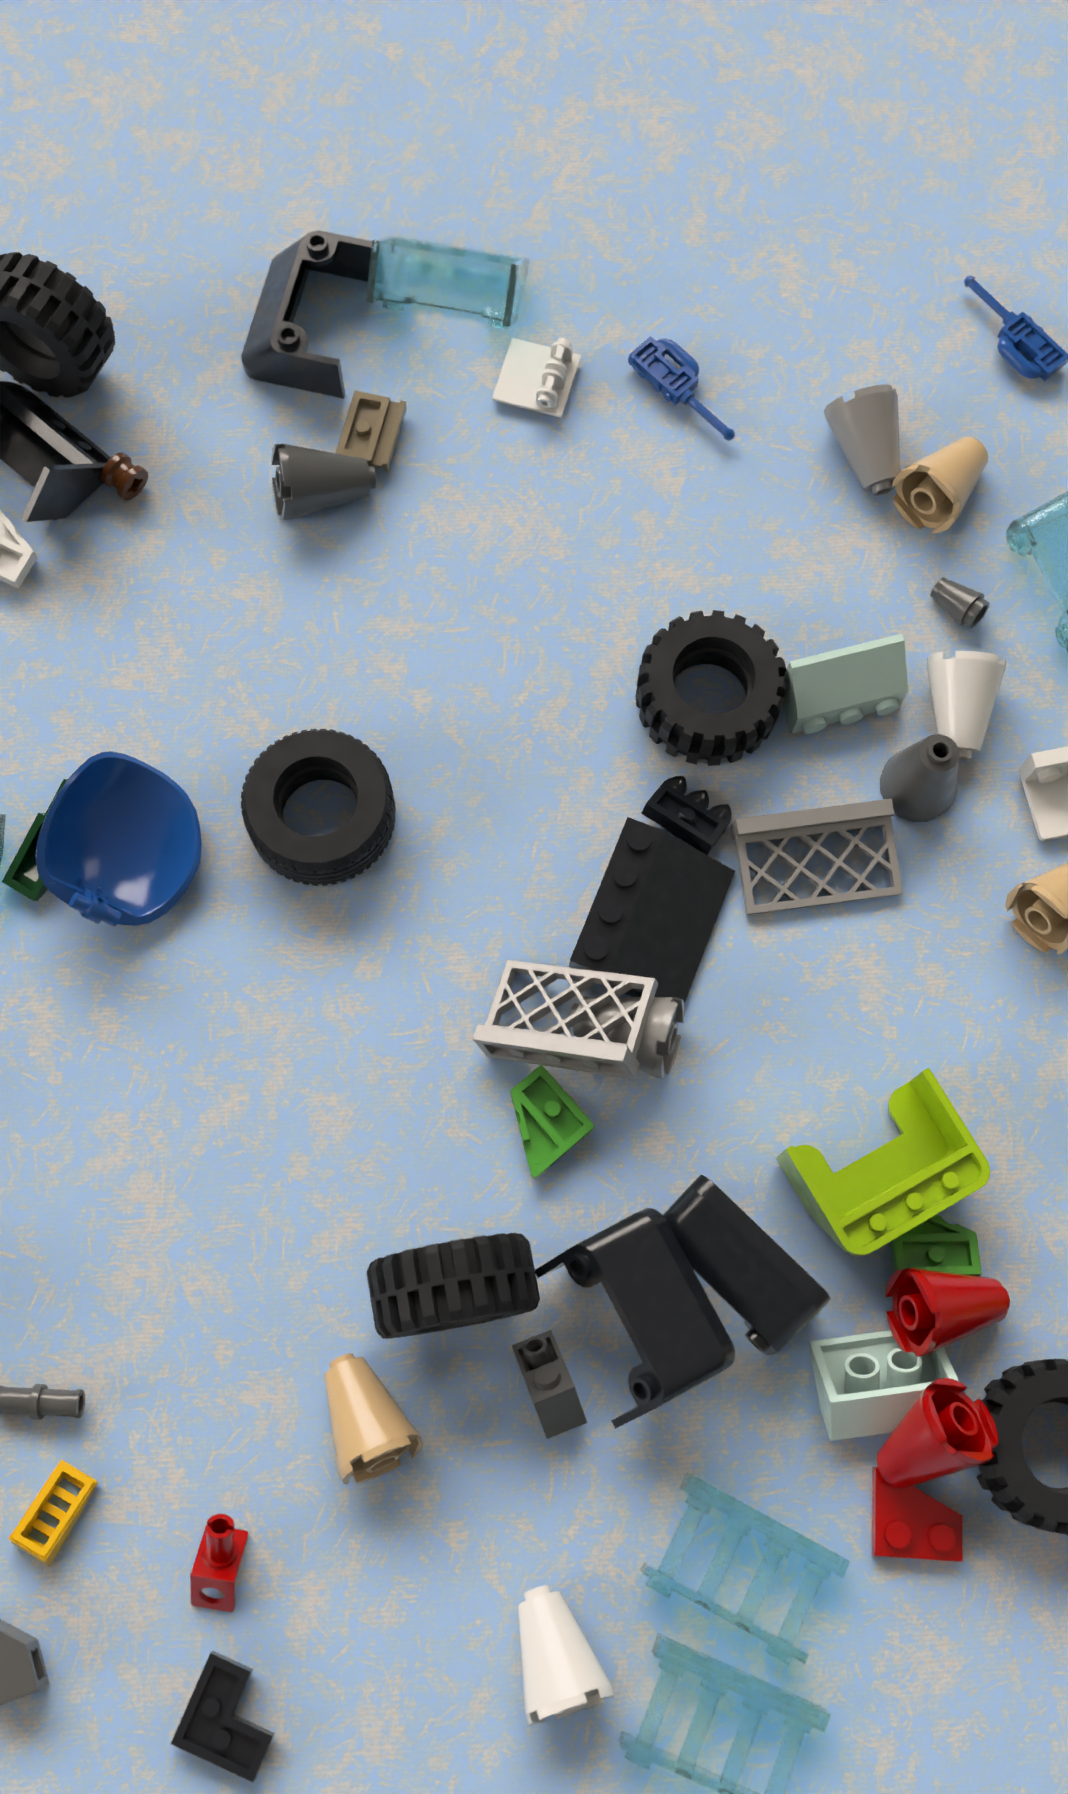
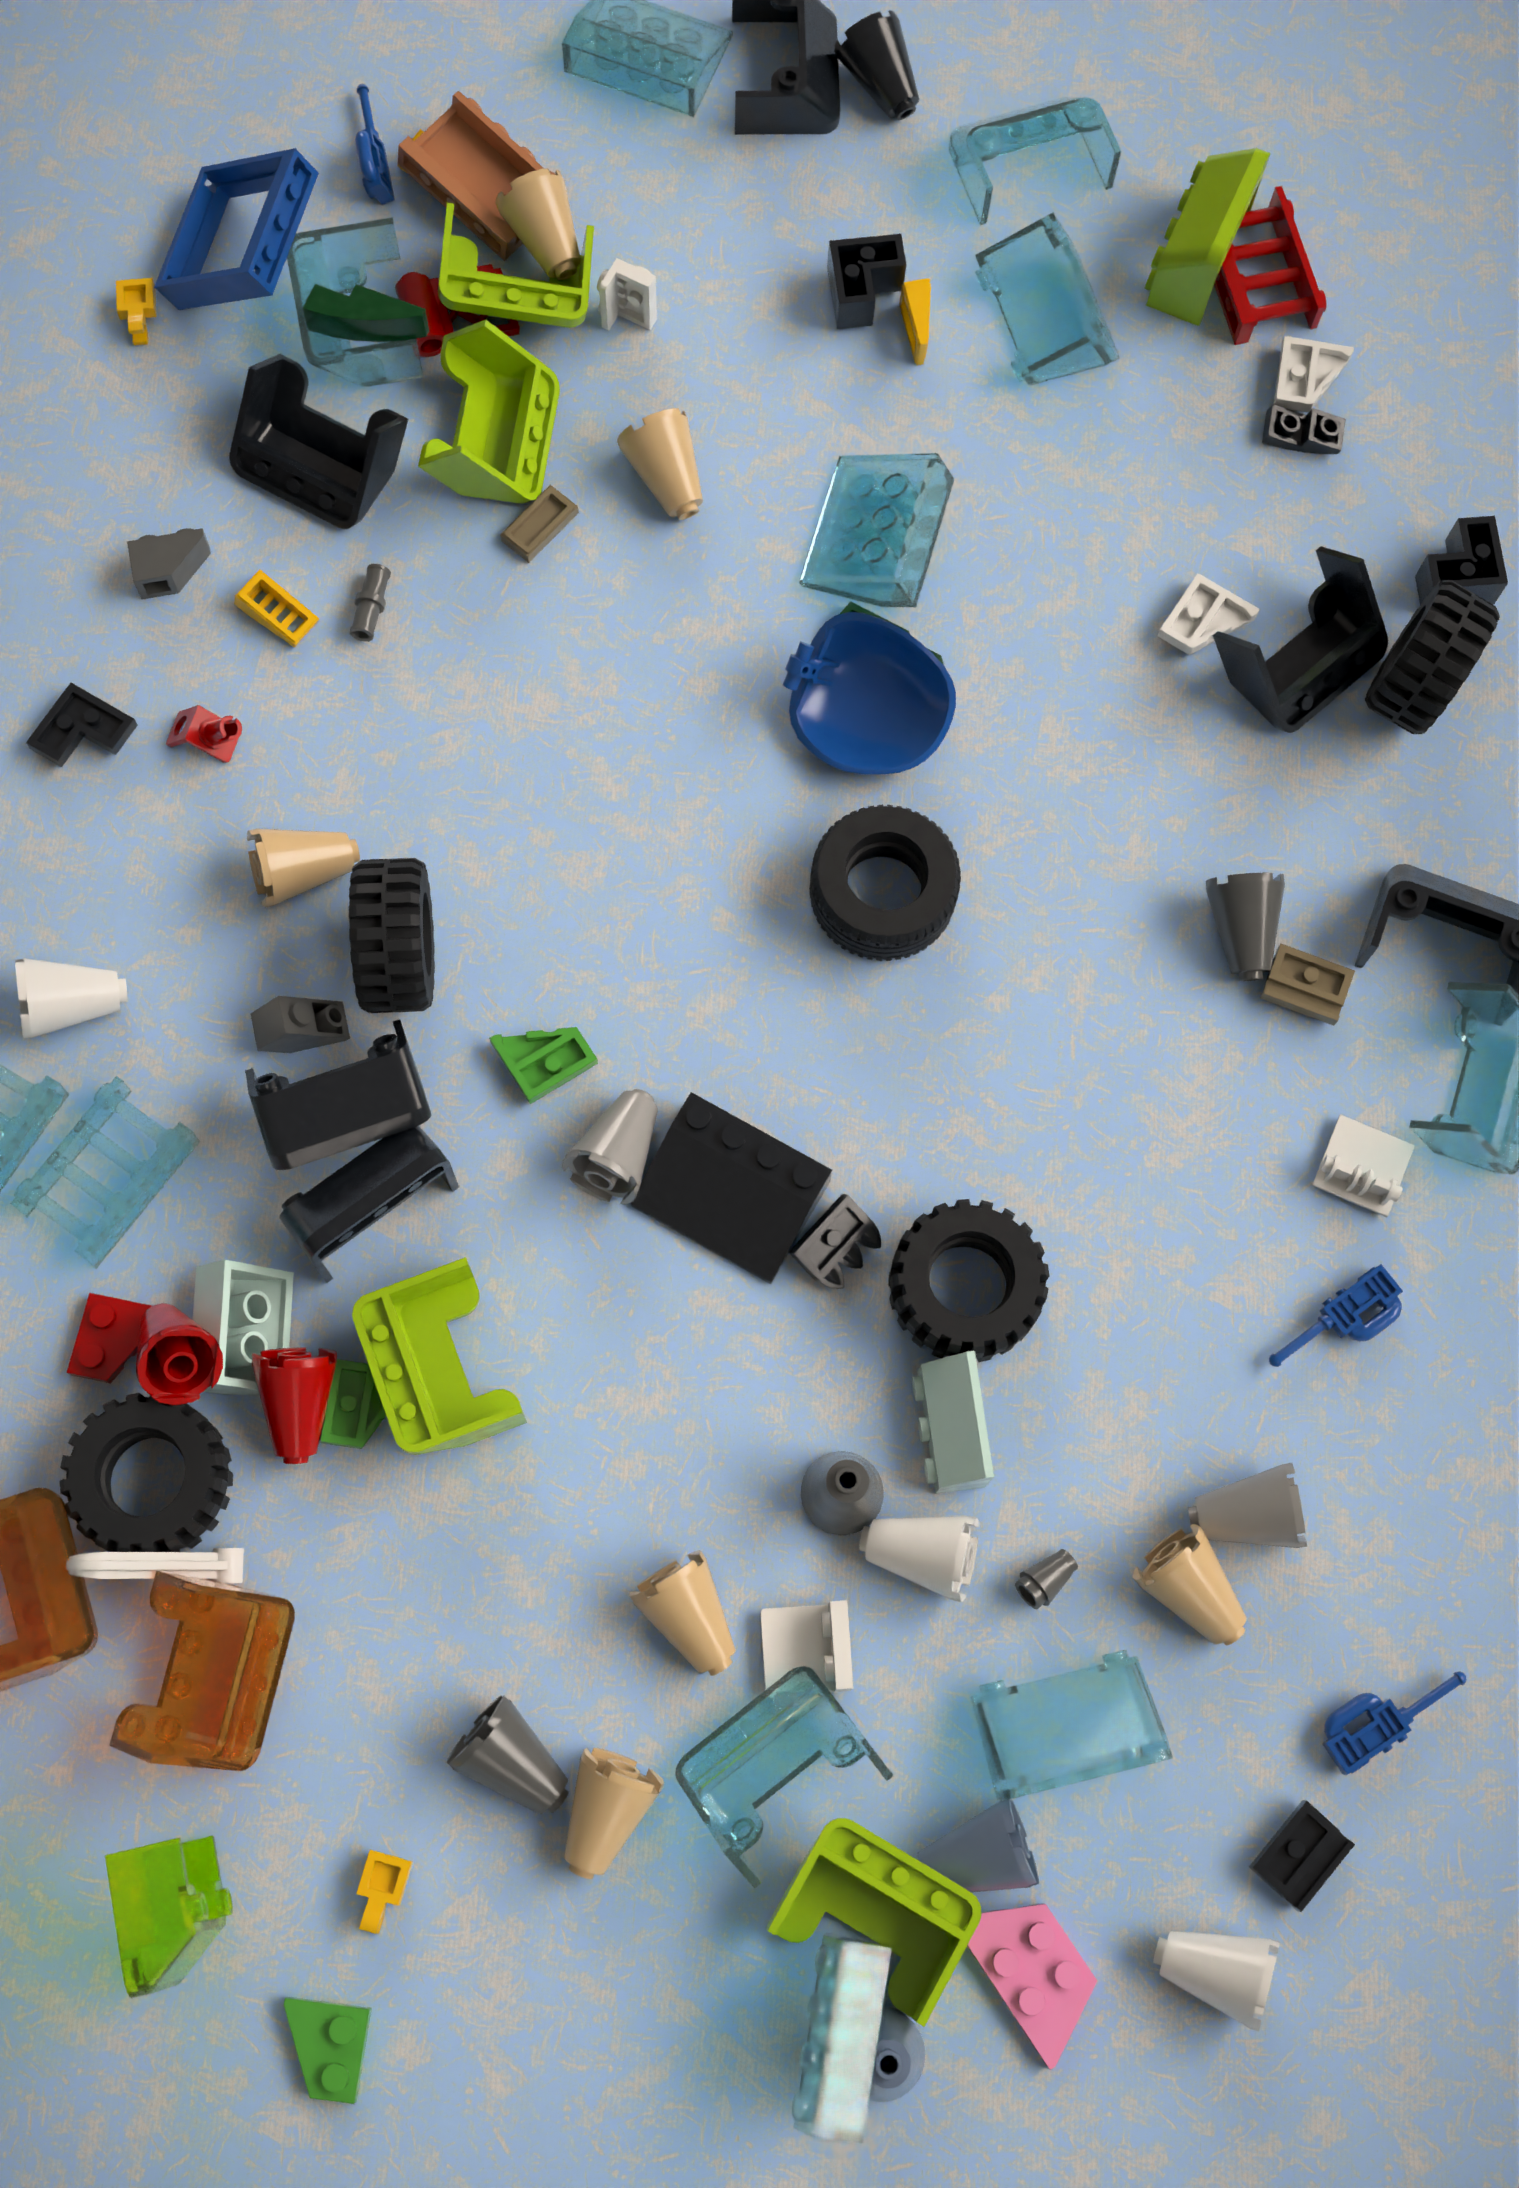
camera: 95 degrees right, 0 degrees up
(124, 476) = (1270, 738): reddish brown wheel -> none
(567, 1051) = (602, 1072): light grey fence -> none
(817, 822) = (809, 1367): light grey fence -> none

